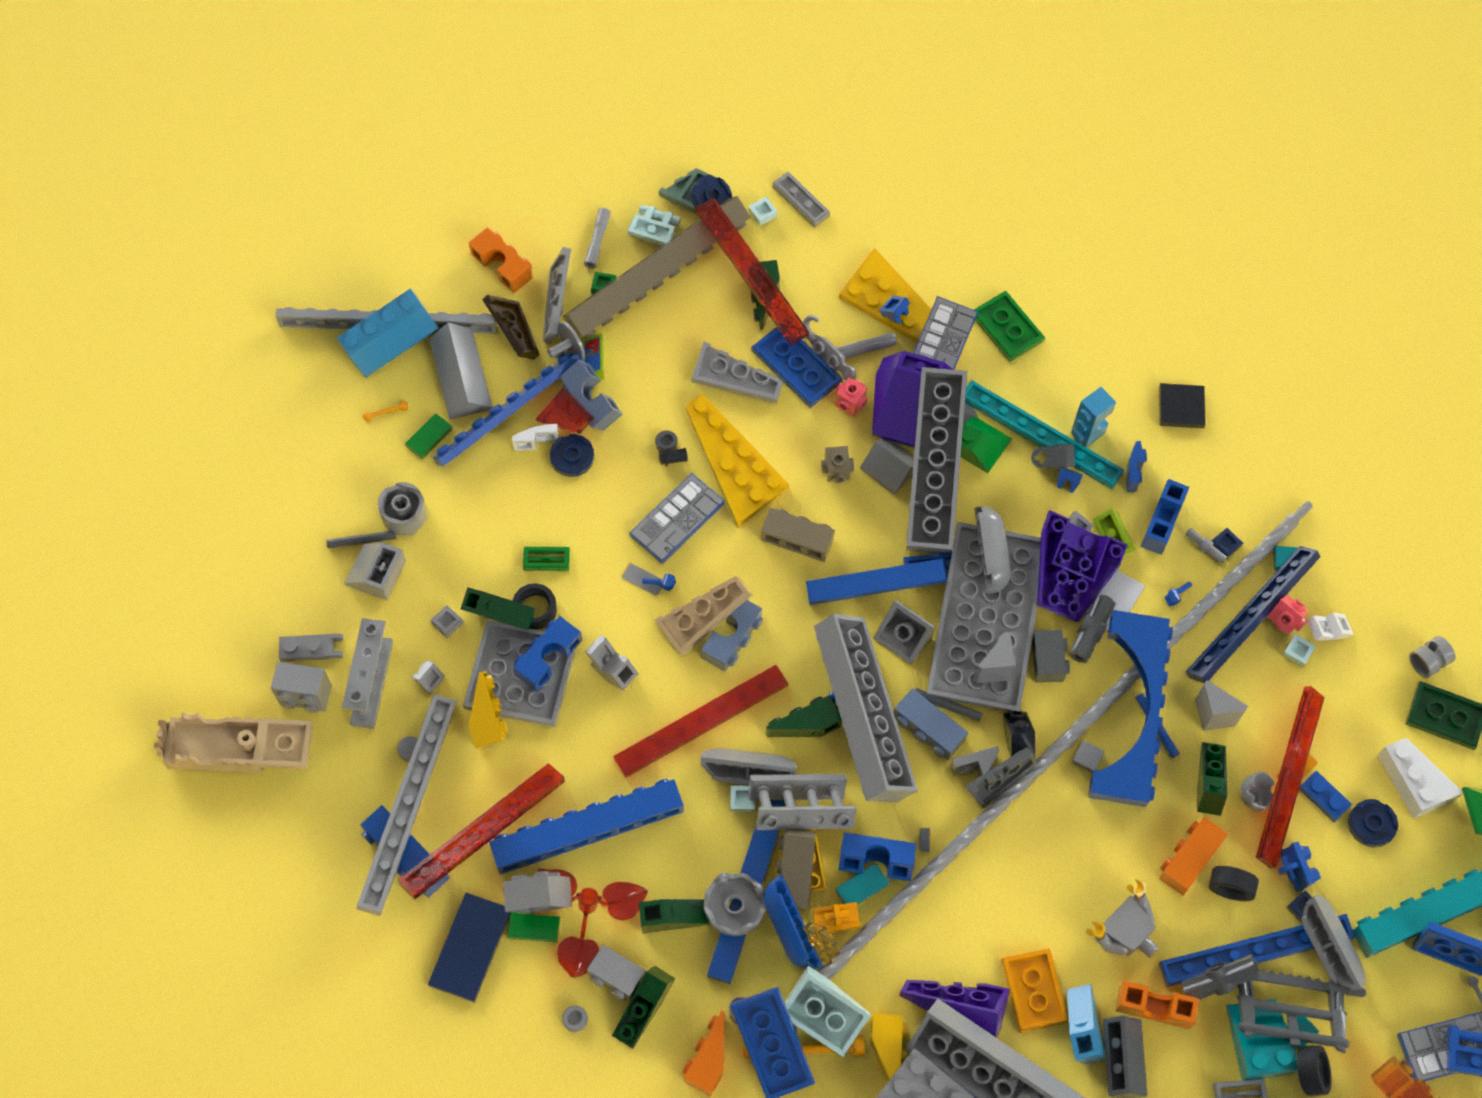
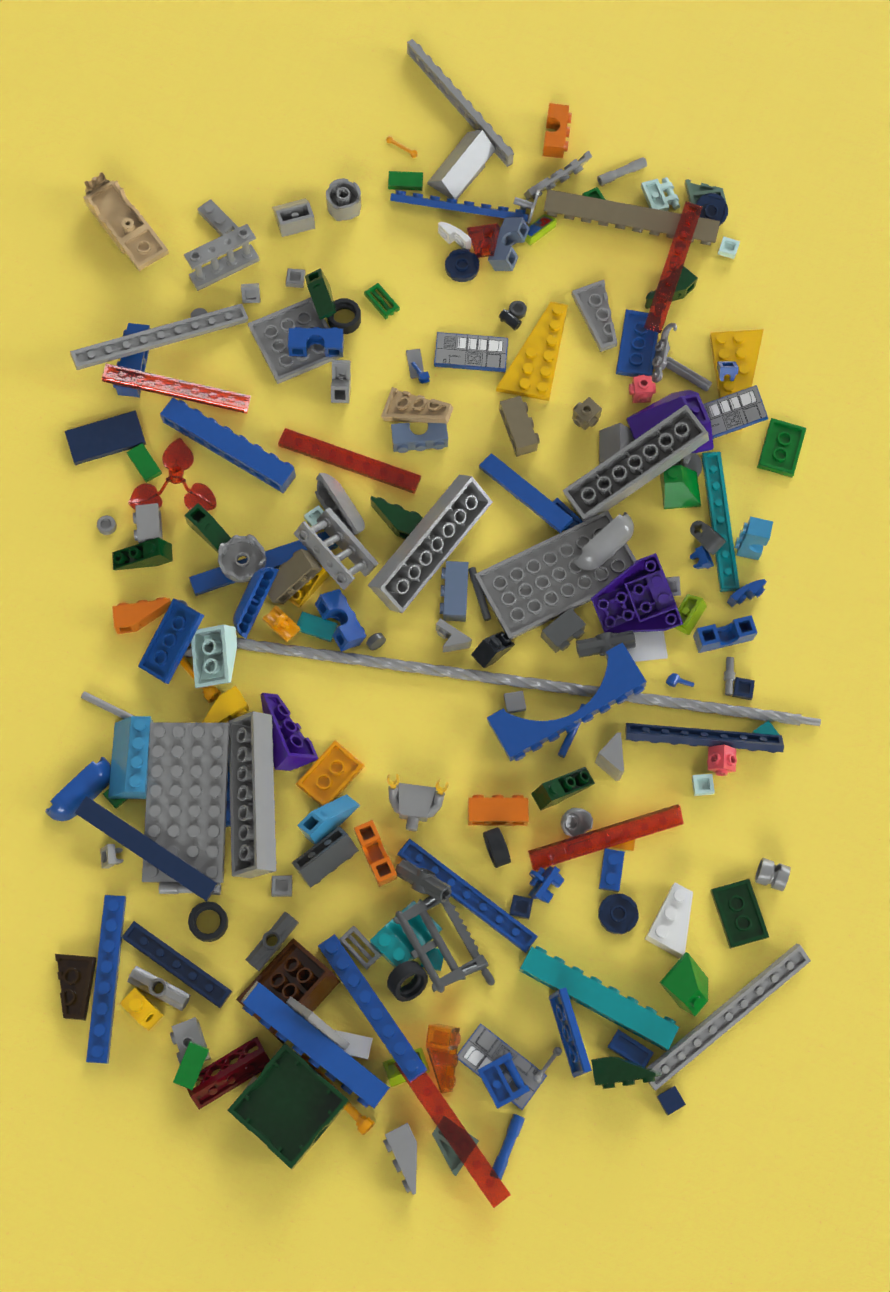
camera: 50 degrees right, 5 degrees up
(301, 687) = (184, 228): light grey brick -> none
(360, 539) = (308, 195): dark grey bar -> none
(387, 332) = (448, 105): dark azure slope -> none
(485, 719) = (249, 337): yellow slope -> none
(513, 324) = (518, 168): dark brown wing -> none
(537, 893) = (159, 443): light grey brick -> none
(801, 199) = (759, 264): light grey tile -> none
(823, 940) = (257, 621): clear yellow plate -> none
(904, 632) = (504, 533): light grey slope -> none
(998, 663) = (525, 596): light grey slope -> none
(1001, 777) = (450, 655): dark grey wing -> none
(1182, 405) = (821, 593): black tile -> none
(1330, 627) = (737, 794): white slope -> none
(1332, 943) = (506, 938): light grey brick -> none

